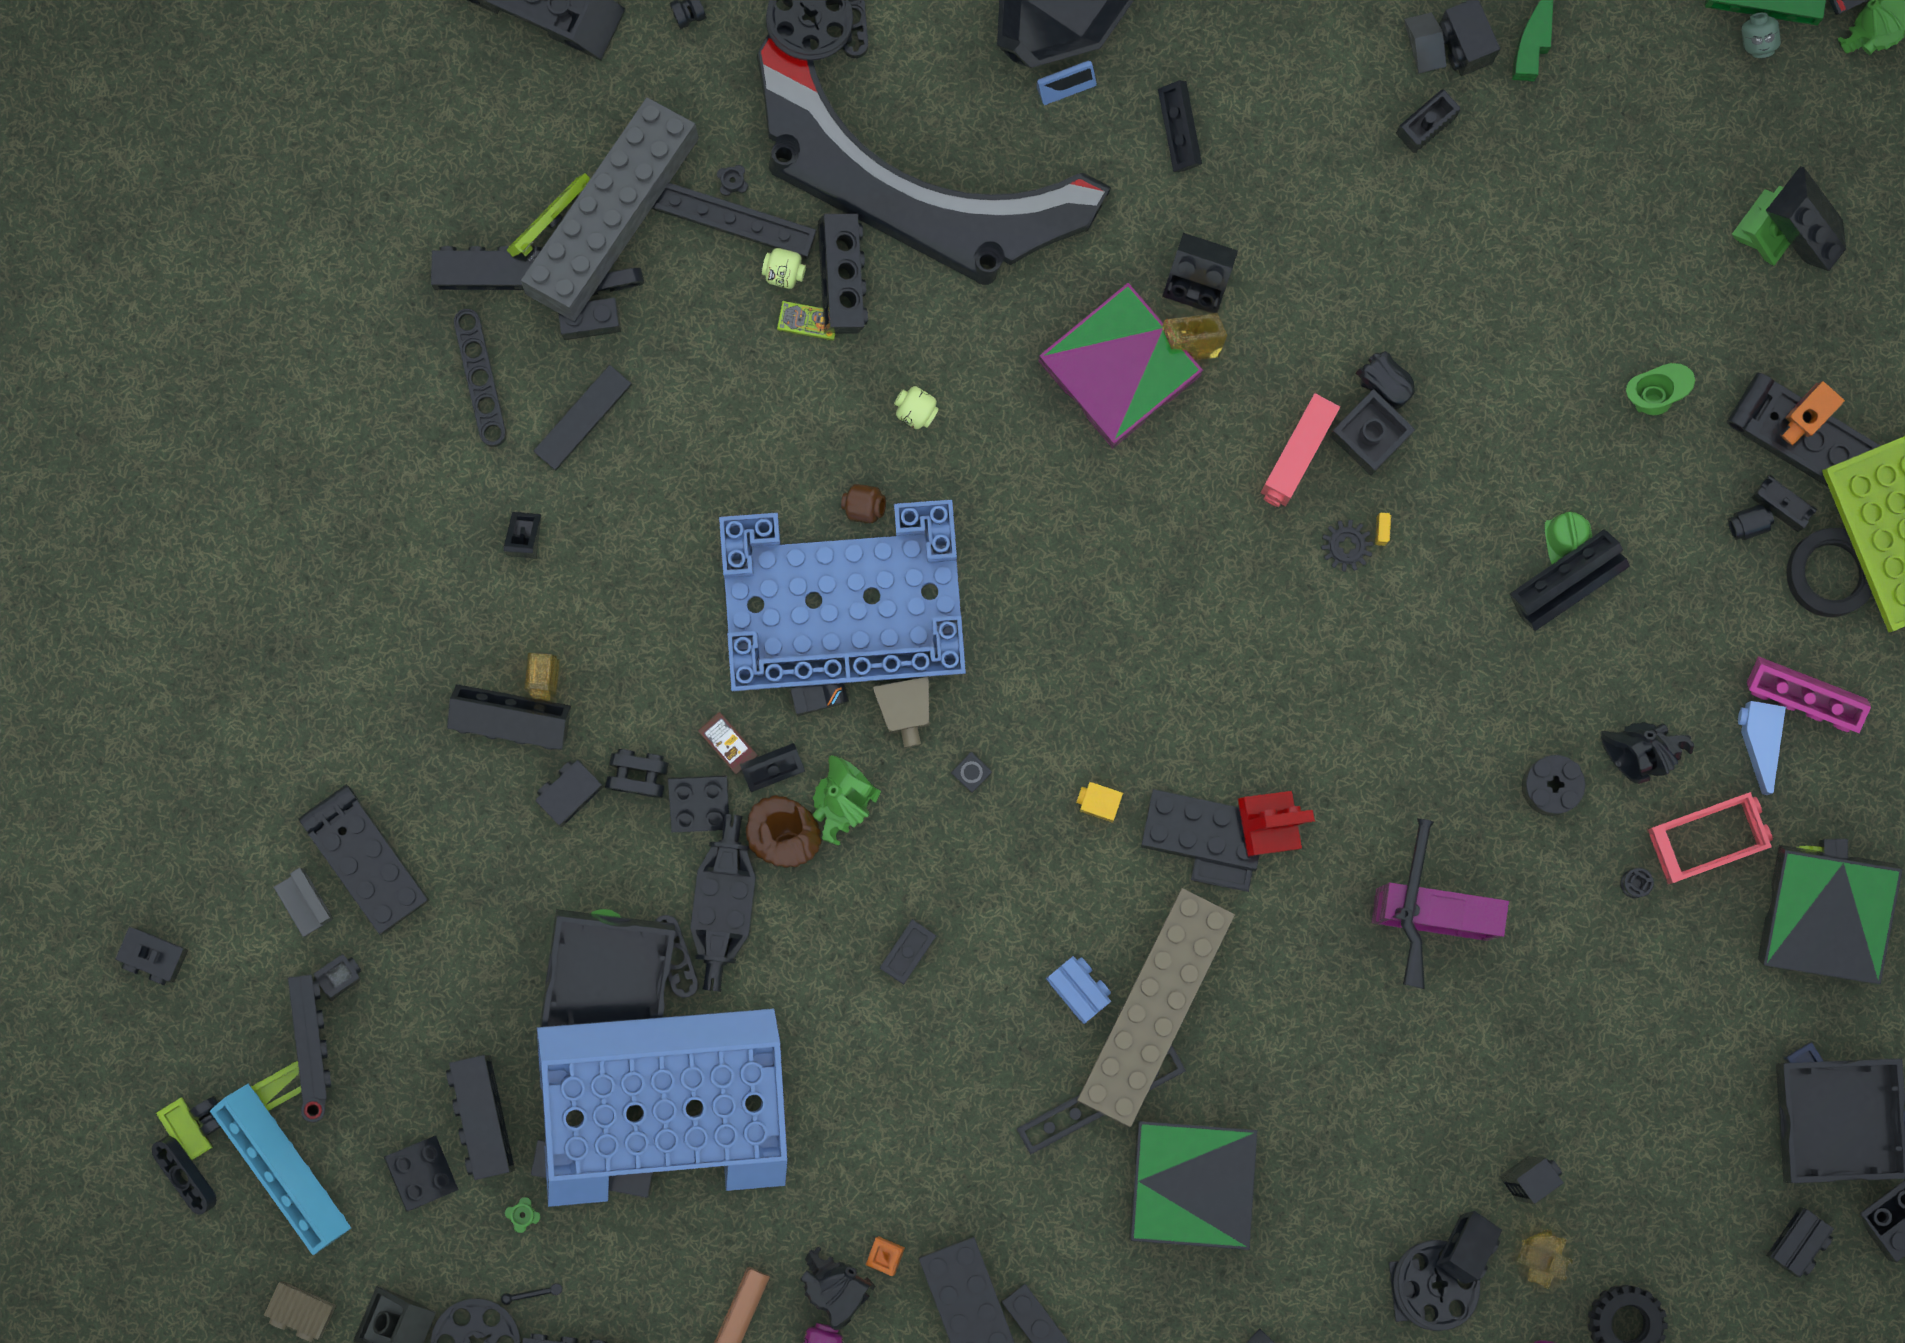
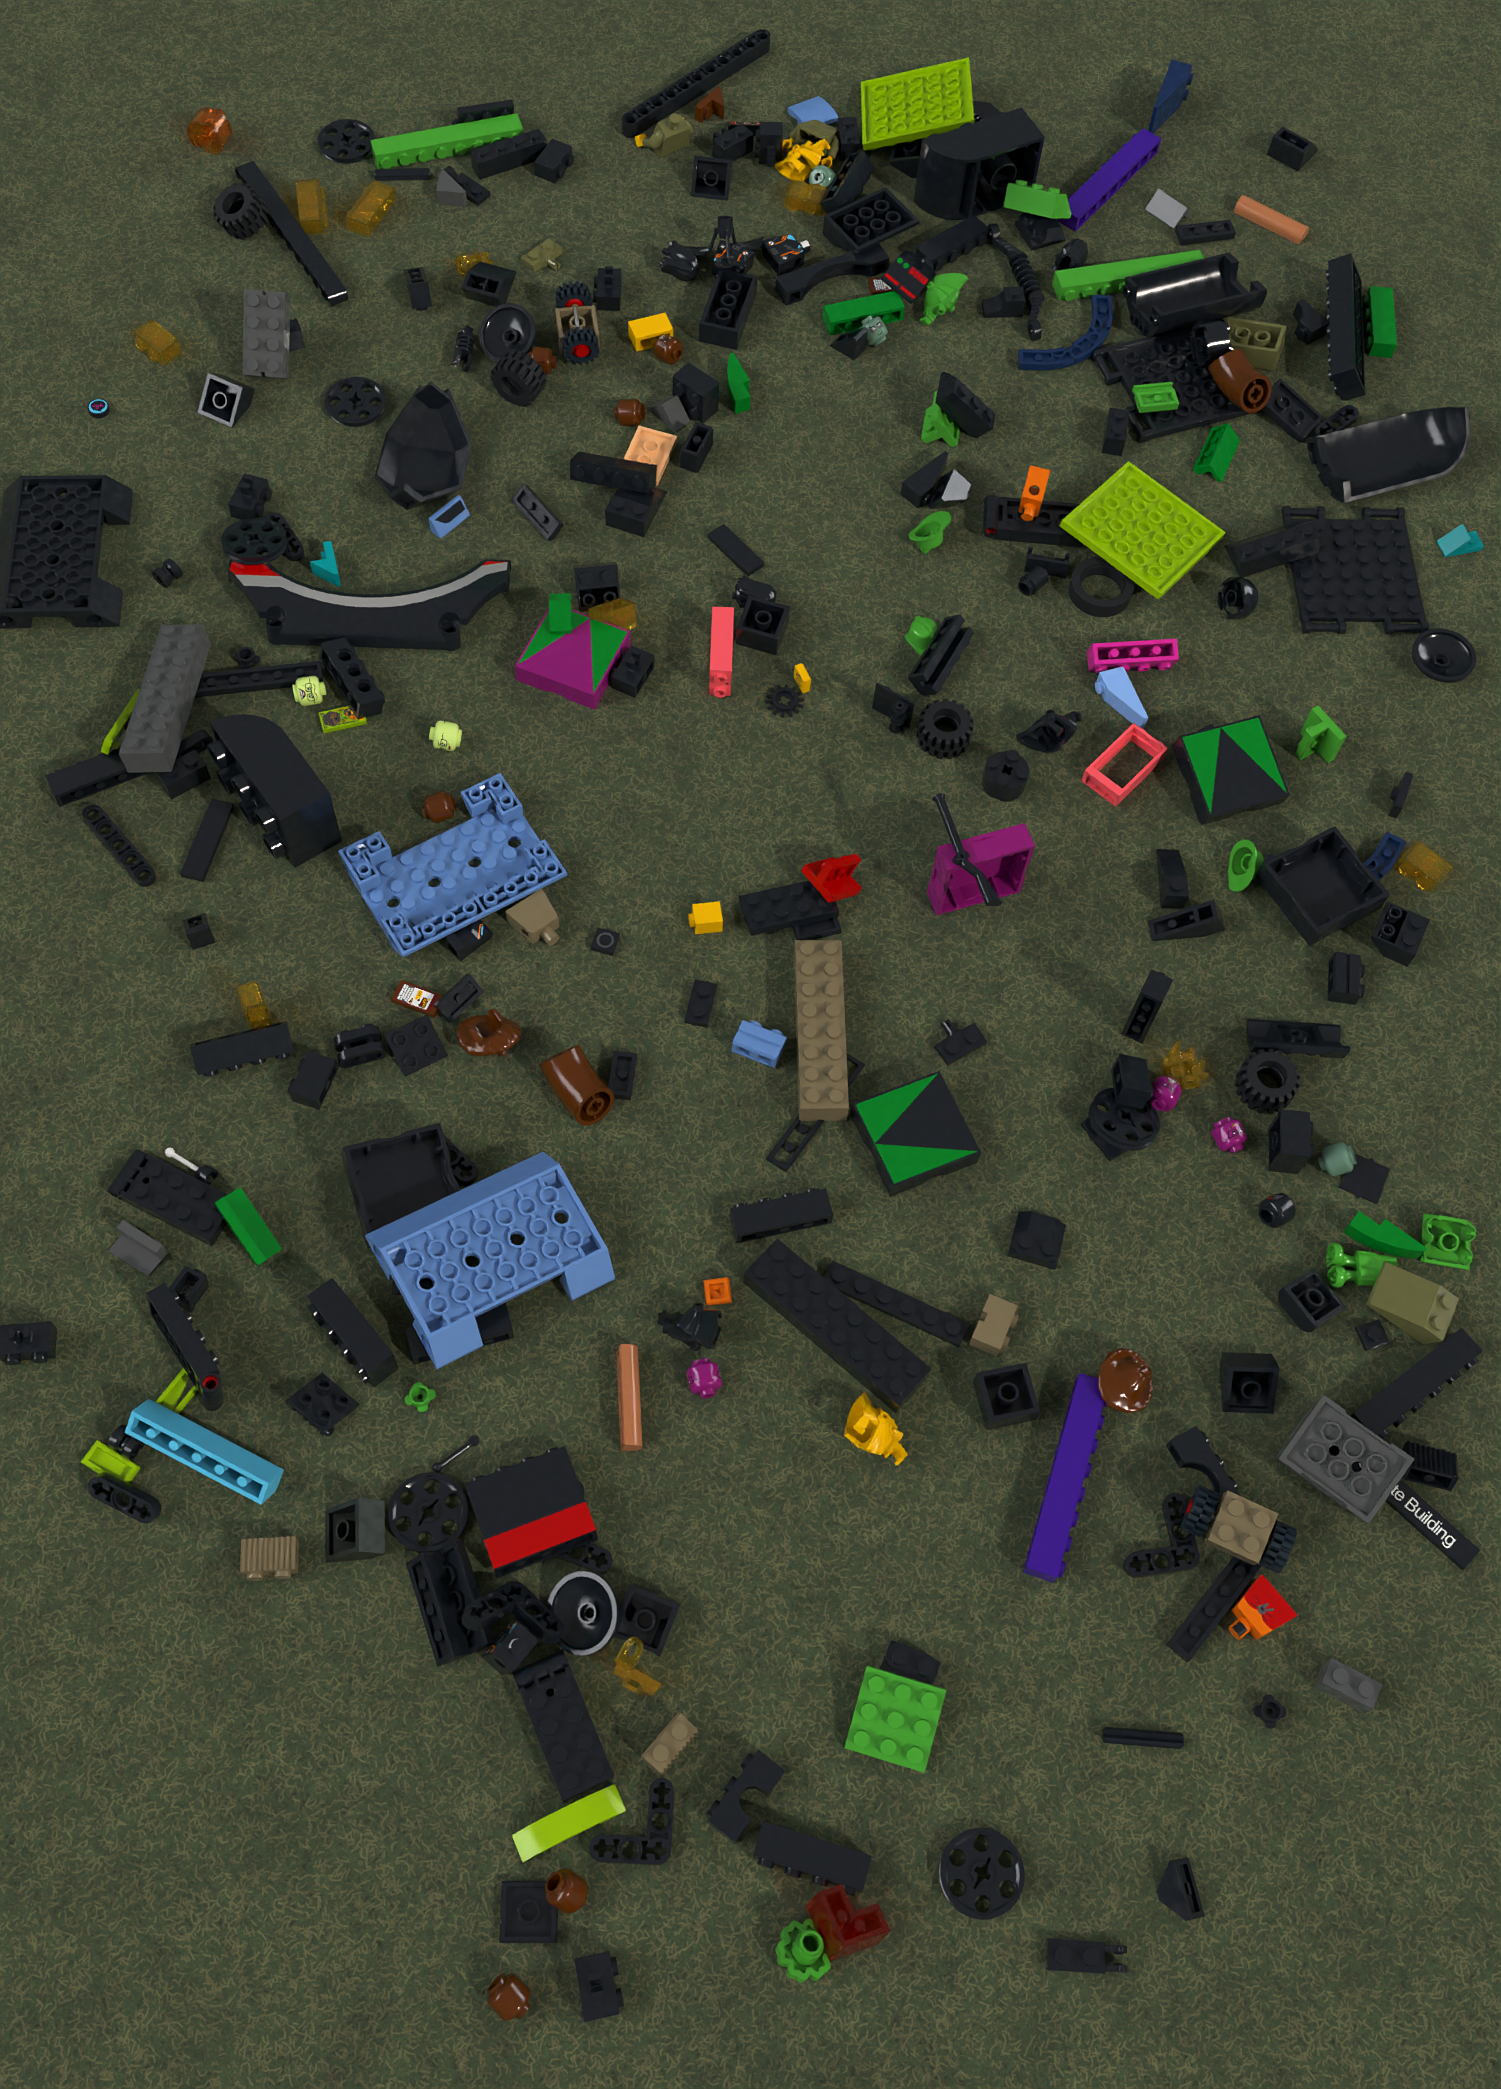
camera: 30 degrees left, 20 degrees down
(406, 846) = (201, 1172): none -> hinge
(425, 938) = (248, 1226): none -> green panel
(678, 406) = (274, 787): none -> black brick
(722, 902) = (466, 1102): black plate -> none
(842, 798) = (521, 993): bright green helmet -> none
(849, 941) = (578, 1085): none -> reddish brown brick
(885, 95) = (326, 567): none -> teal slope
(996, 1206) = (780, 1215): none -> black brick
(1040, 904) = (701, 1003): none -> black plate
(1128, 307) = (560, 613): none -> green slope
(1181, 421) = (632, 671): none -> black brick
(1301, 114) = (613, 472): none -> black brick
(1306, 1097) = (959, 1042): none -> black plate
(1308, 171) = (633, 510): none -> black slope
(1363, 99) = (651, 448): none -> light nougat plate
(1372, 21) = (629, 412): none -> reddish brown head
(1401, 296) = (735, 550): none -> black tile
(1474, 639) = (893, 706): none -> black hinge
(1491, 685) = (945, 742): none -> black tyre
(1502, 1277) = (1165, 1093): none -> magenta head
(1631, 884) = (1097, 815): black wheel -> none
(1657, 1082) = (1188, 923): none -> black slope
(1676, 1013) = (1172, 879): none -> black slope
(1689, 312) = (921, 485): none -> black slope
(1693, 1287) = (1295, 1038): none -> black piece
(1717, 341) = (950, 491): none -> slope
(1721, 37) = (851, 343): none -> black slope
(1770, 1043) = (1243, 864): none -> bright green piece

